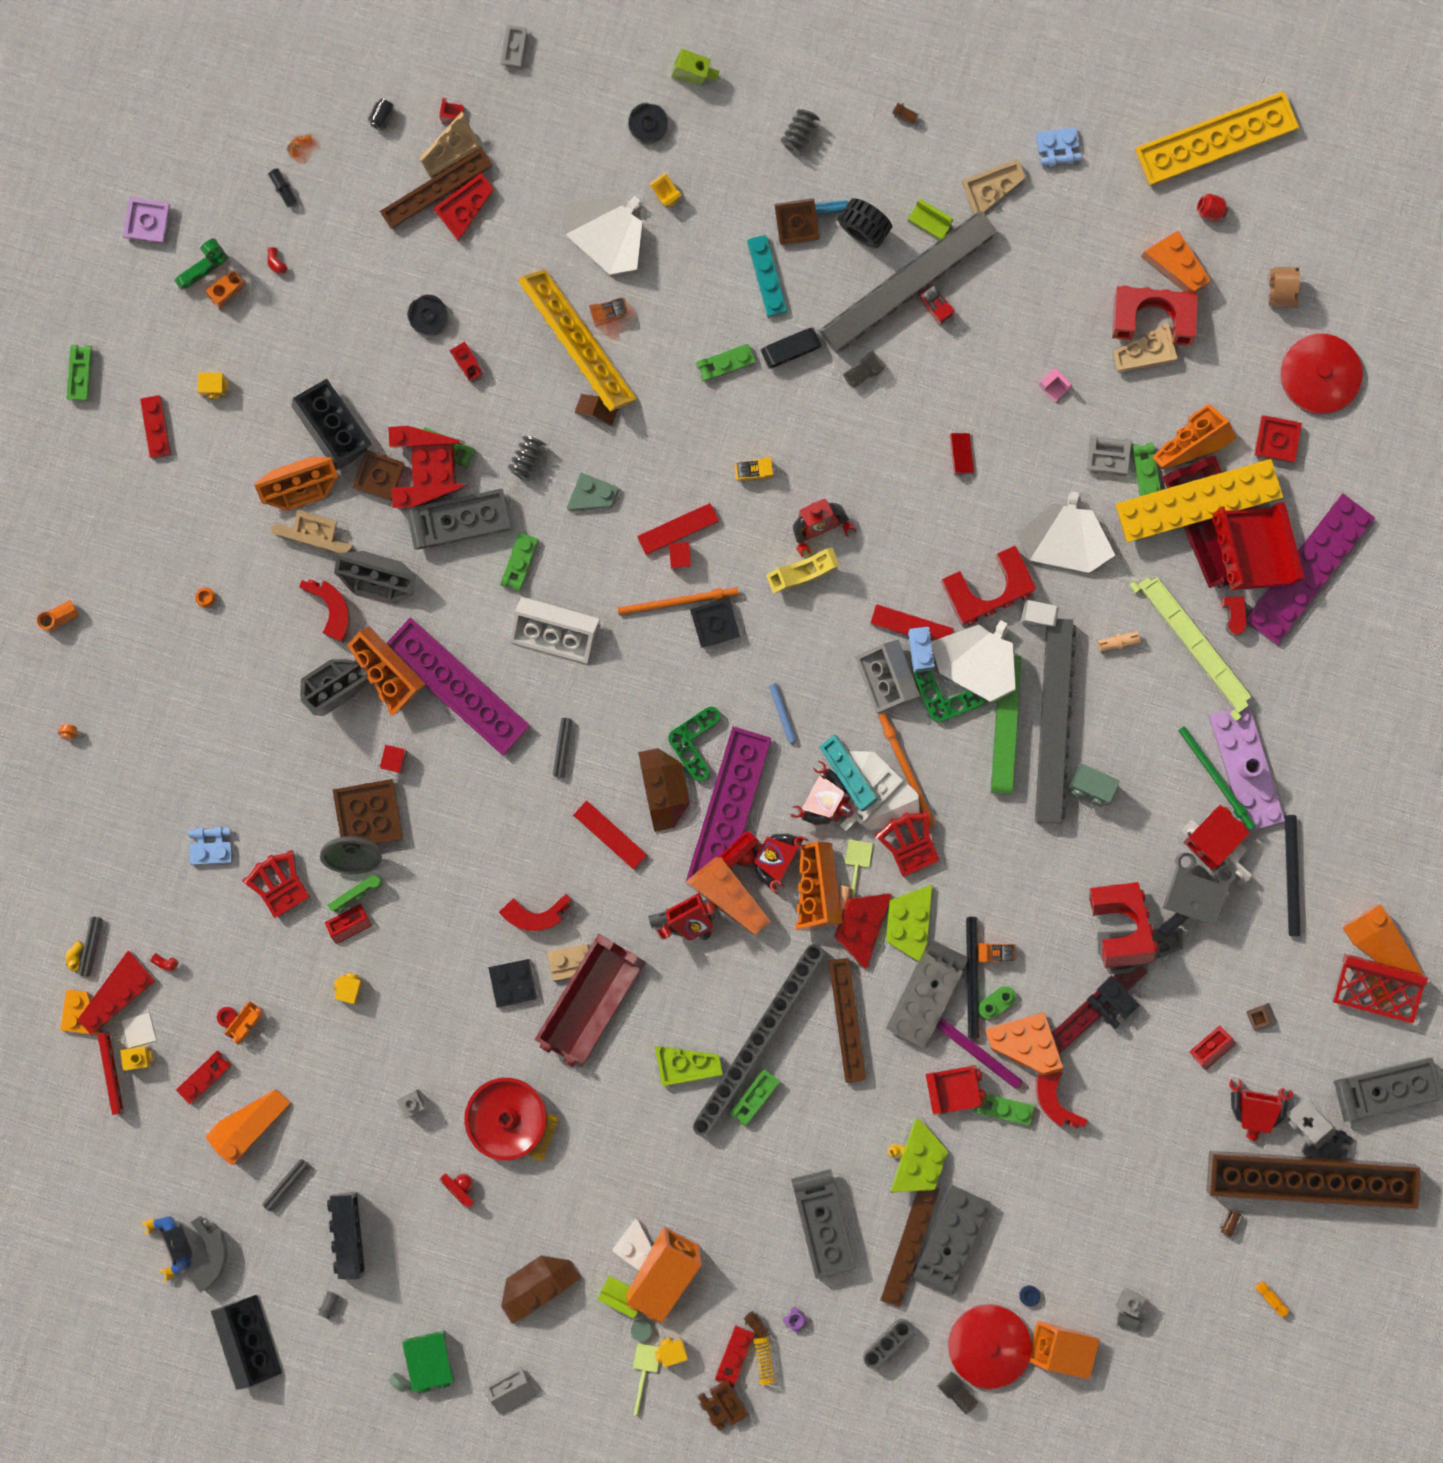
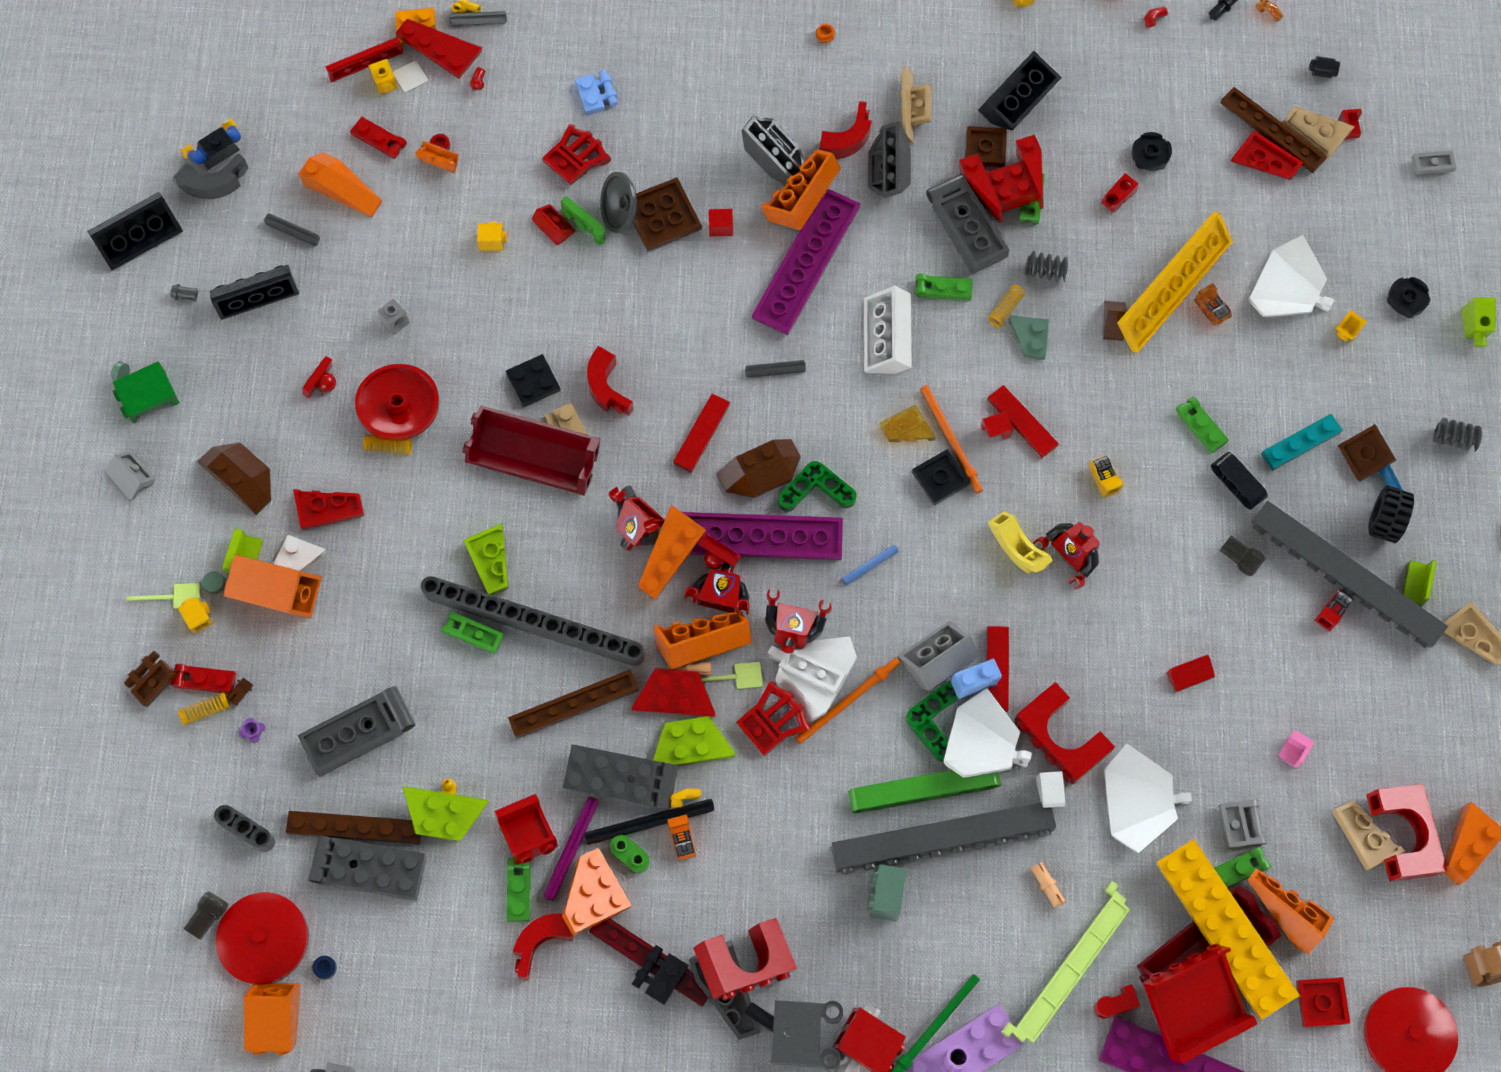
camera: 70 degrees right, 15 degrees down
(297, 483) = (954, 78): orange wedge -> none
(544, 491) = (1015, 294): none -> yellow piece
(594, 1209) = (326, 508): none -> red wing
(654, 639) = (907, 426): none -> clear yellow wing
(849, 773) = (827, 639): teal plate -> none
(958, 940) = (687, 793): none -> yellow arm

